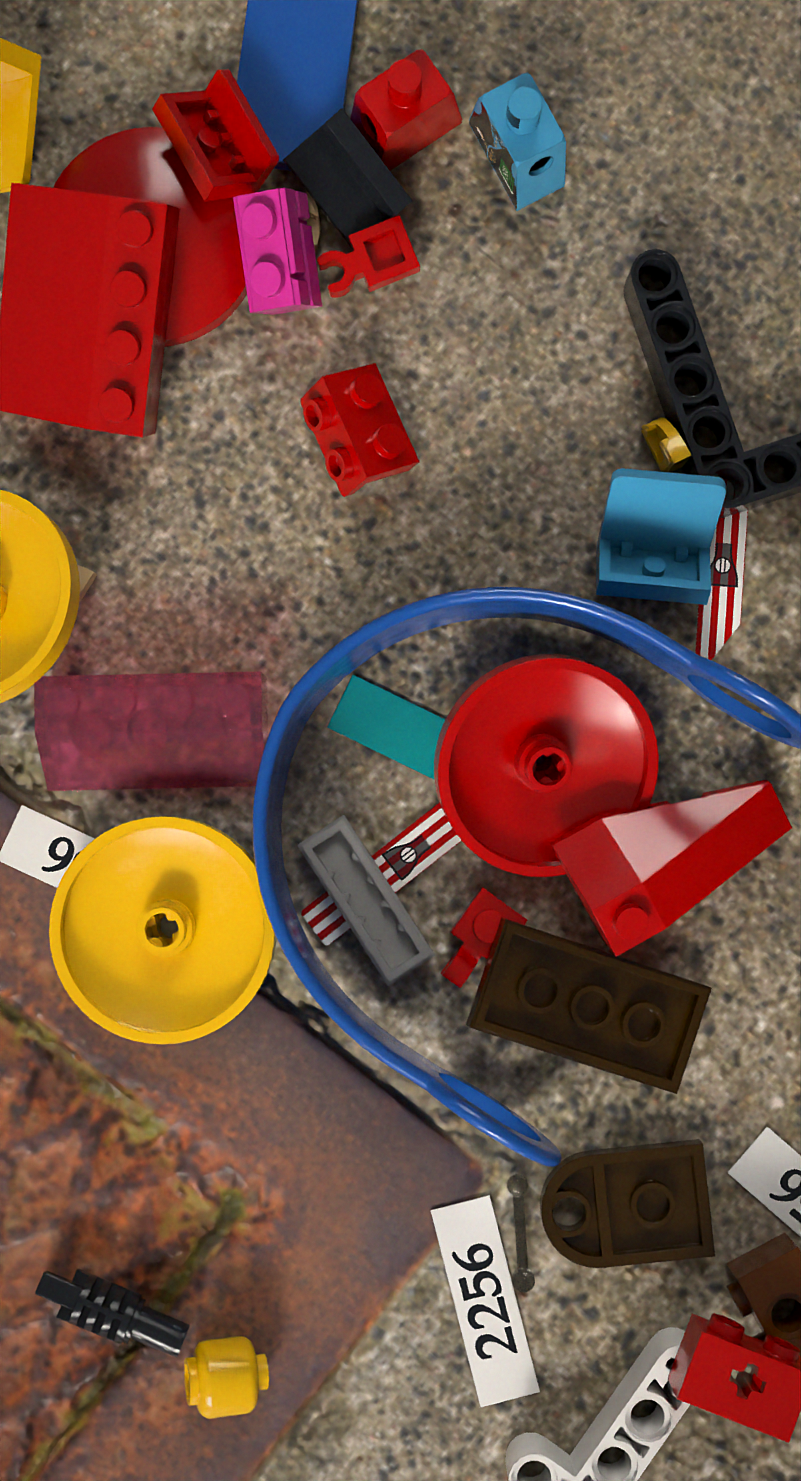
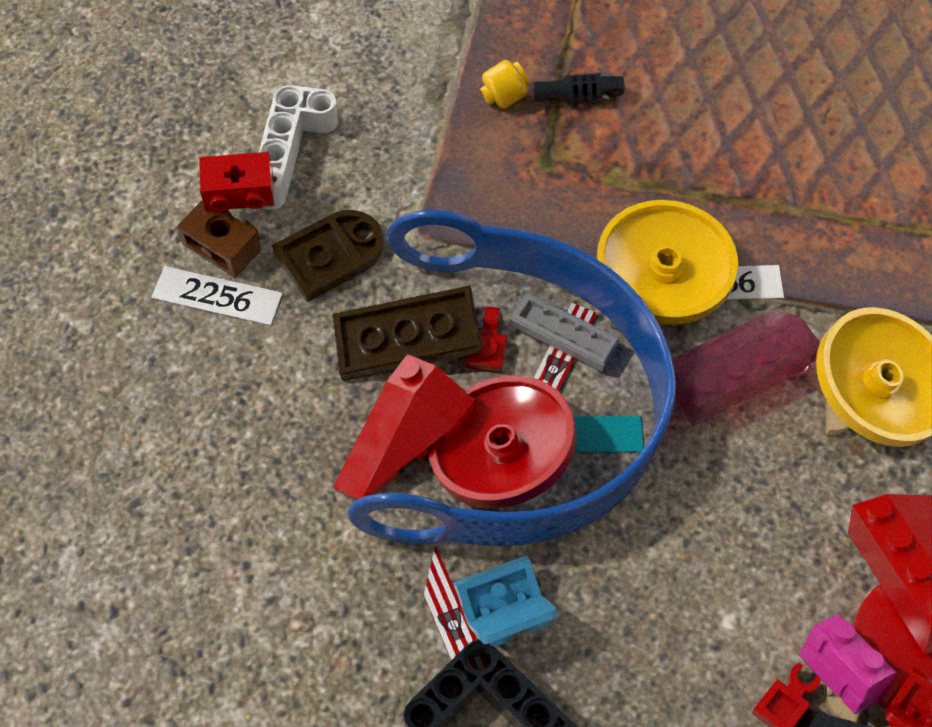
camera: 150 degrees right, 25 degrees down
(357, 428) = (727, 590): red bracket -> none
(485, 1301) = (384, 175): white sticker -> none
(522, 1277) = (371, 195): clear smoke hinge -> none
(666, 444) = (526, 667): yellow tile -> none

